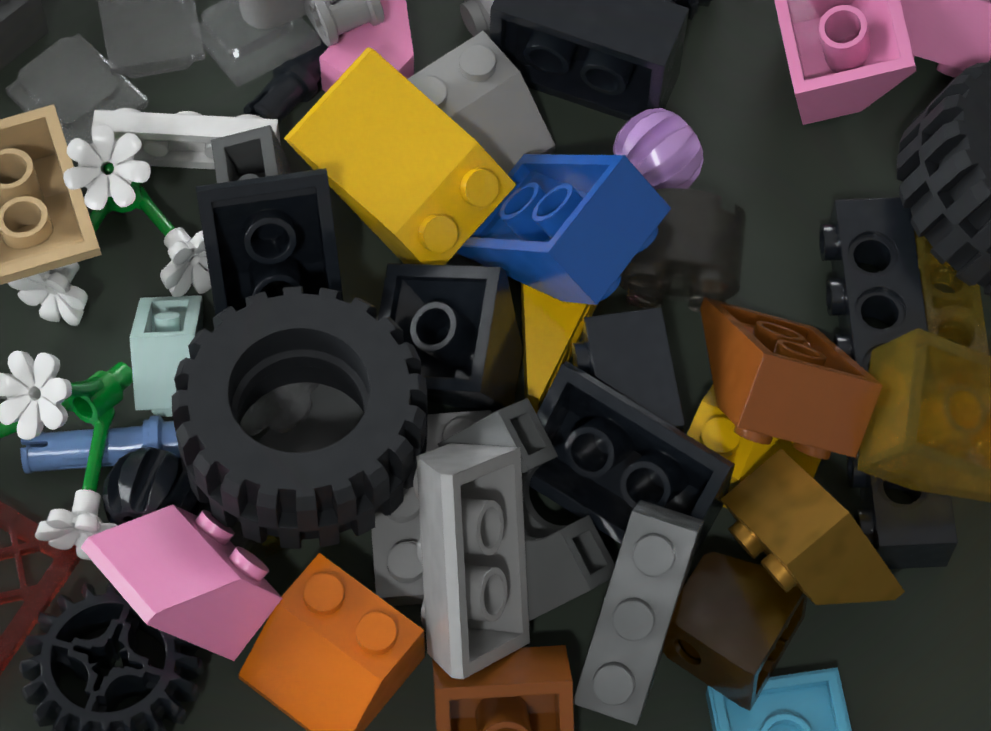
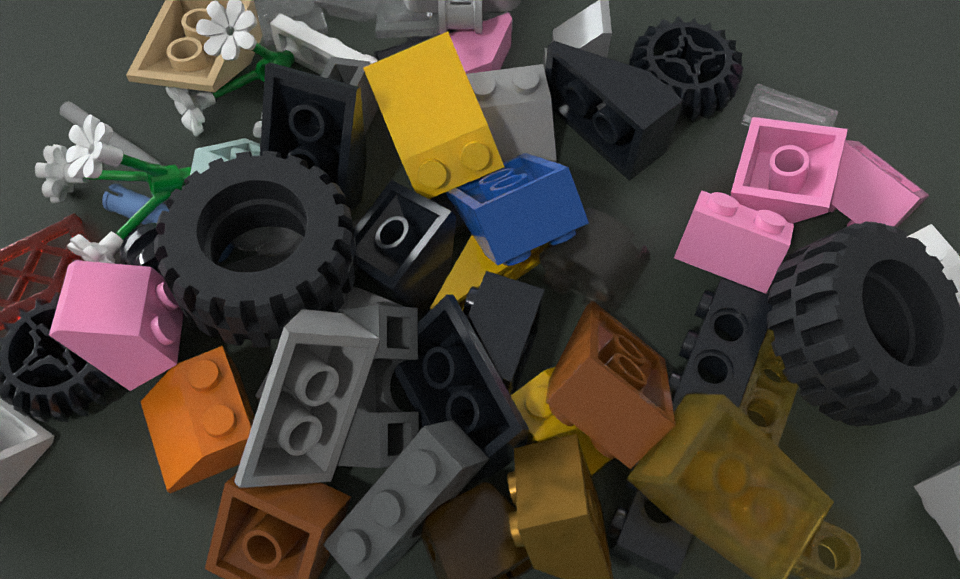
camera: 30 degrees right, 0 degrees up
(661, 148) = (618, 190): lavender piece -> none
(827, 151) = (735, 240): none -> bright pink slope

